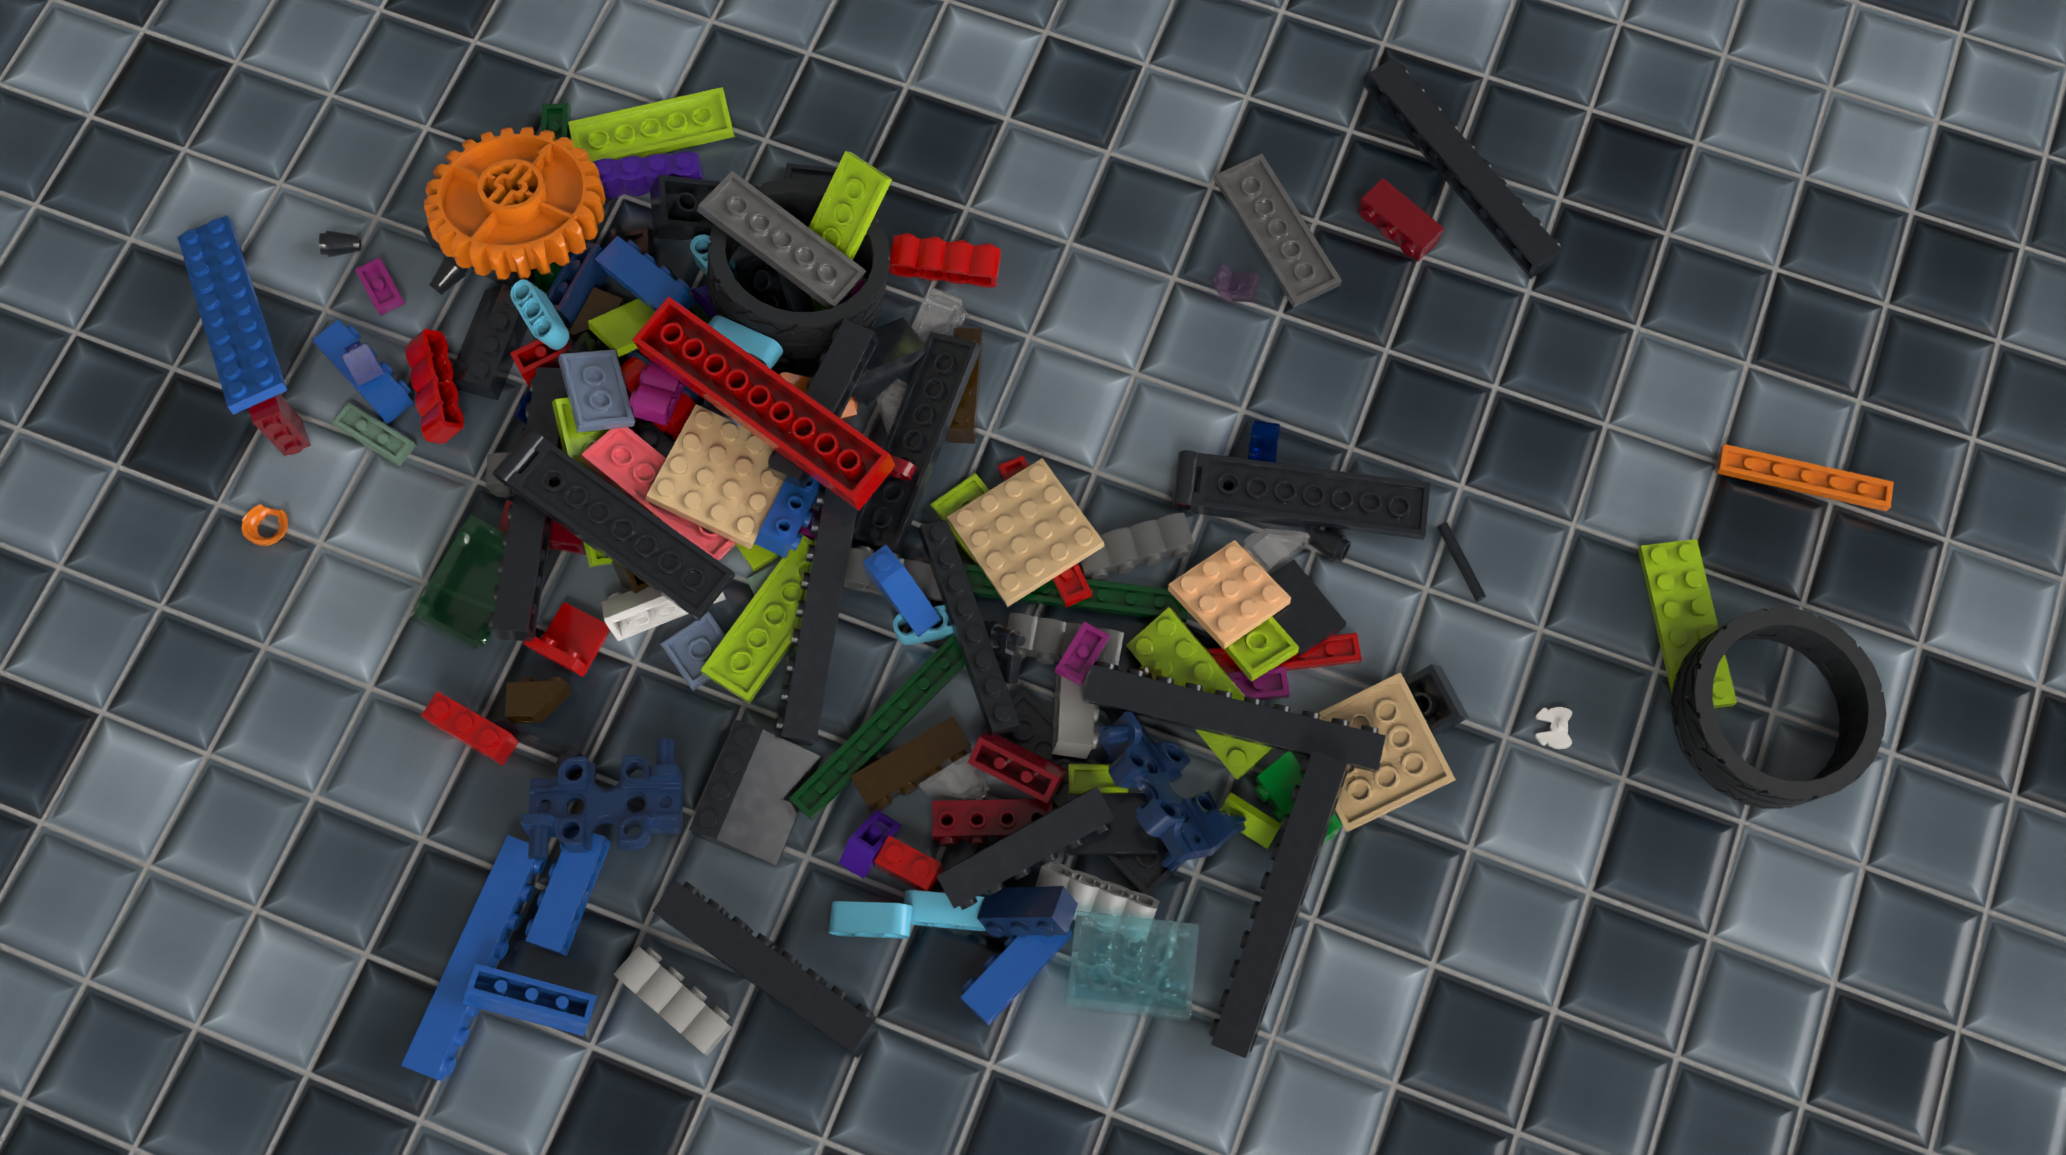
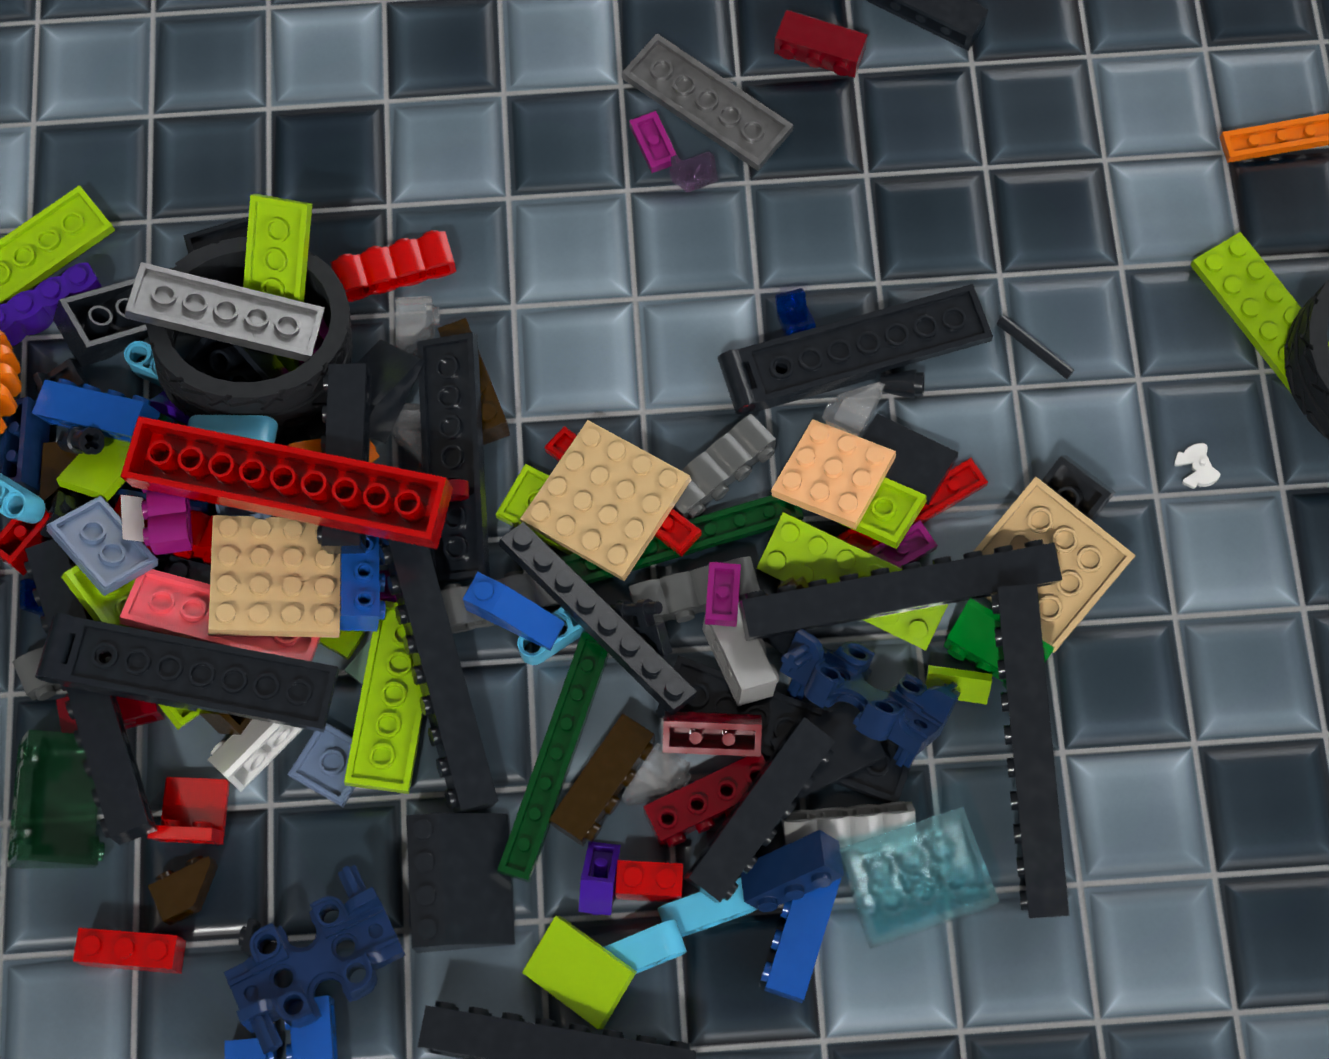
camera: 25 degrees left, 0 degrees up
(622, 298) = (82, 440): none -> black piece
(631, 378) = (132, 518): none -> white sticker
(814, 913) = (579, 972): none -> lime tile
(1087, 776) = (783, 713): lime tile -> none
(1214, 244) = (653, 141): none -> magenta plate

